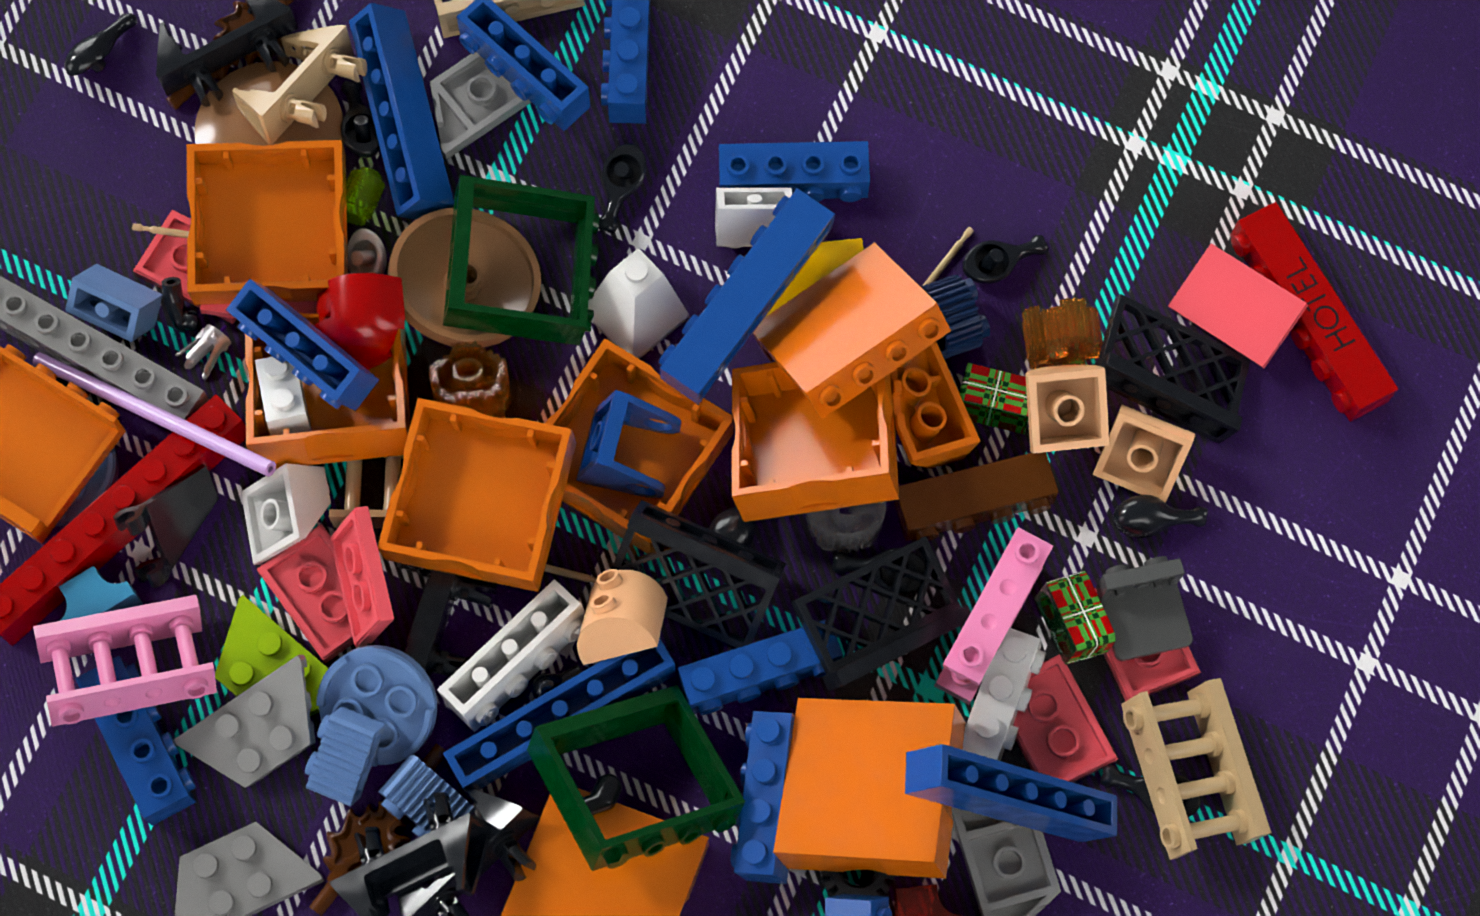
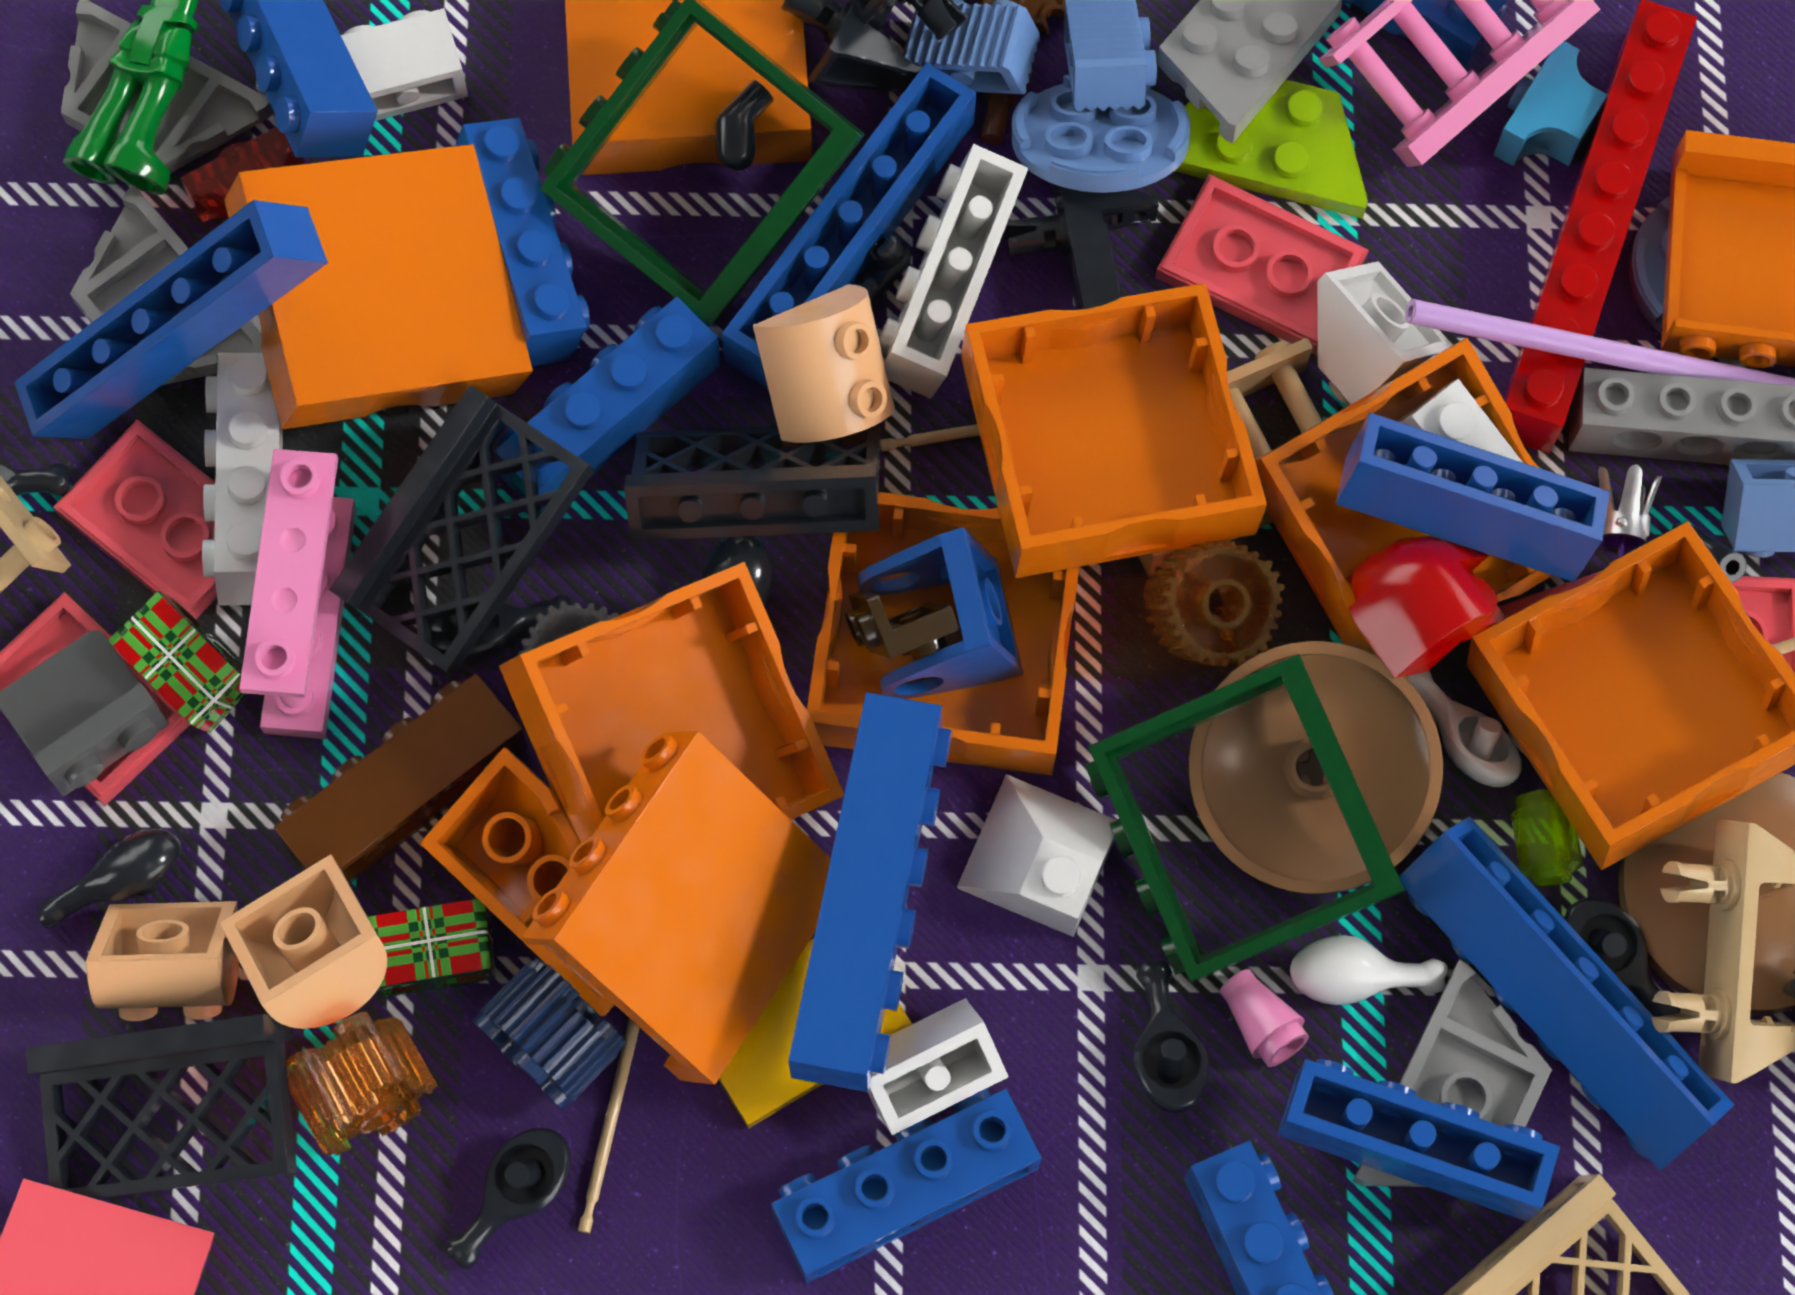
camera: 155 degrees right, 0 degrees up
(173, 519) = (1521, 247): black flag -> none
(361, 577) = (1211, 263): coral tile -> none
(496, 169) = (1351, 970): none -> white piece
(562, 168) = (1266, 1021): none -> bright pink cone
(653, 443) = (910, 632): none -> dark brown bracket

